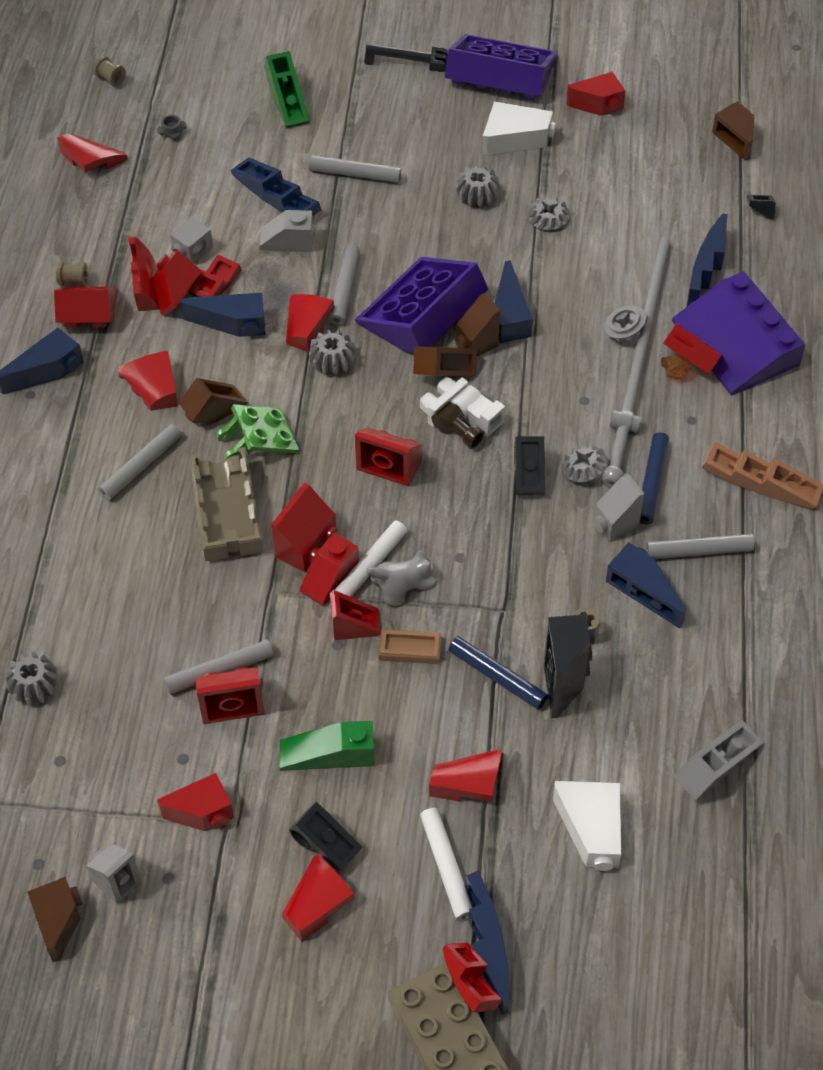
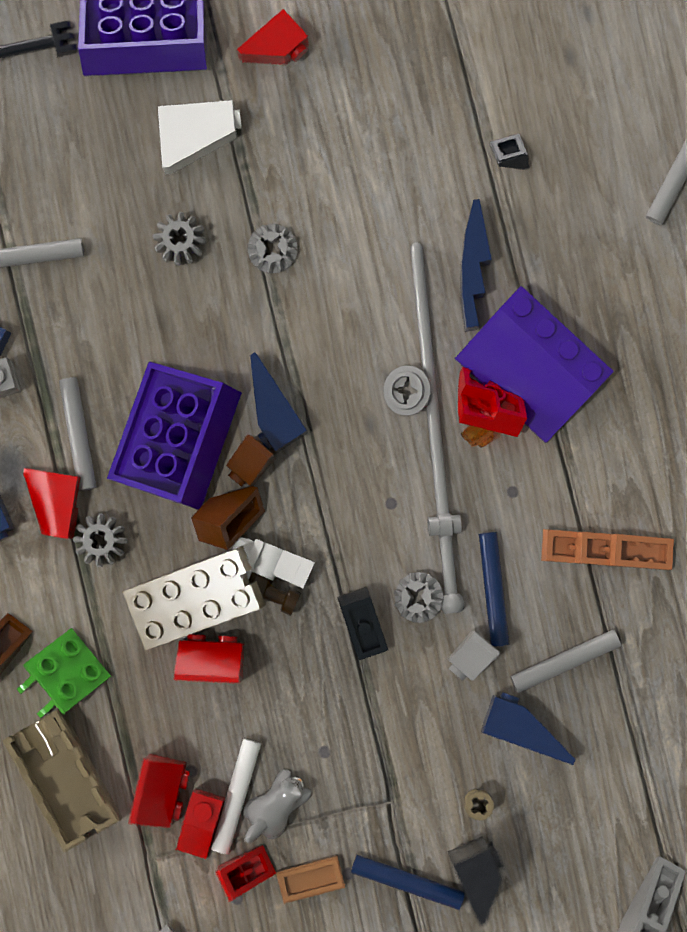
camera: 15 degrees left, 30 degrees up
(394, 401) = (193, 598): none -> piece
(735, 128) = (453, 45): reddish brown slope -> none

